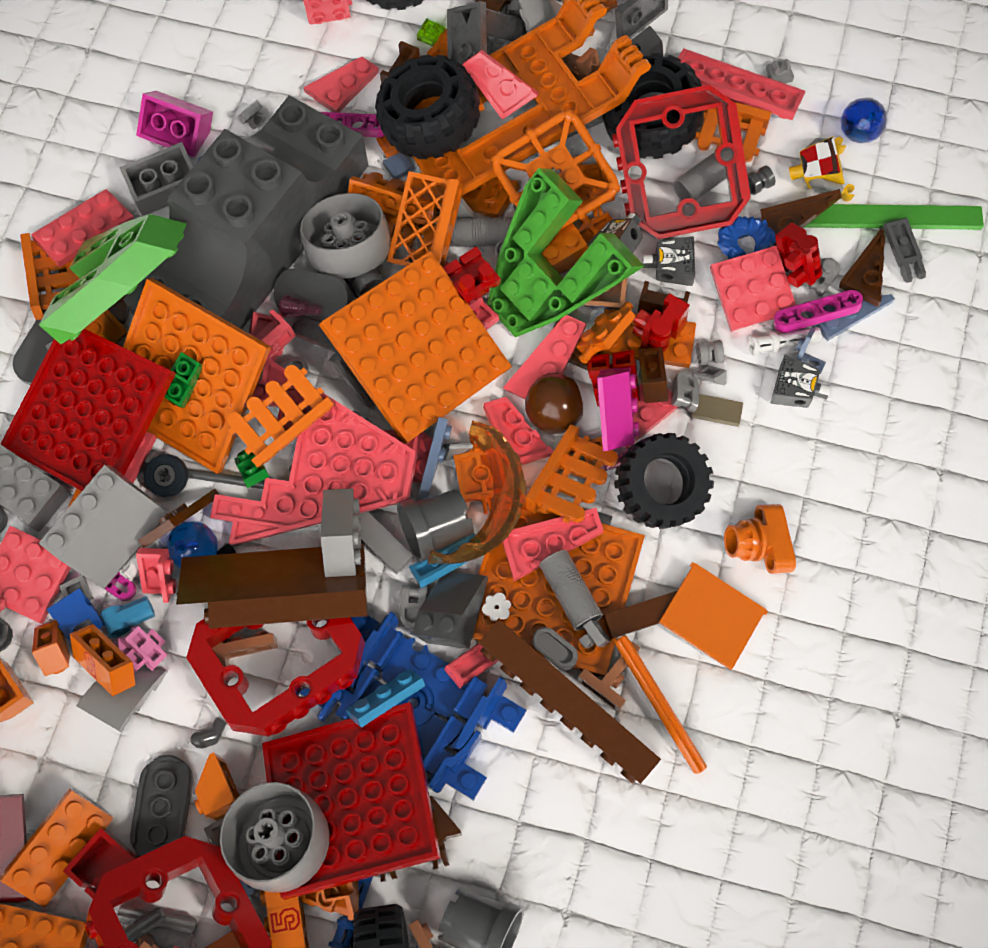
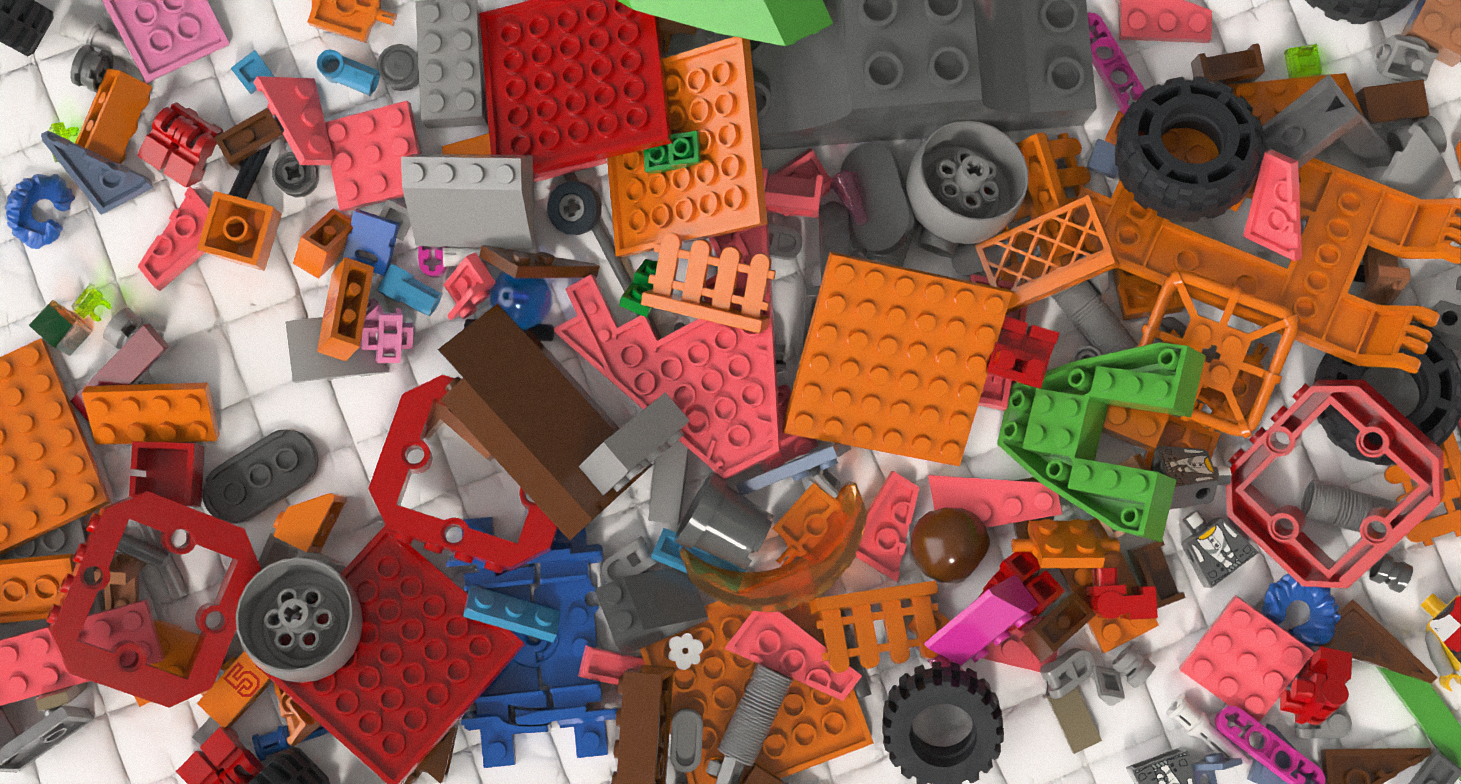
camera: 50 degrees right, 15 degrees up
(209, 737) = (354, 467): dark grey arm -> none

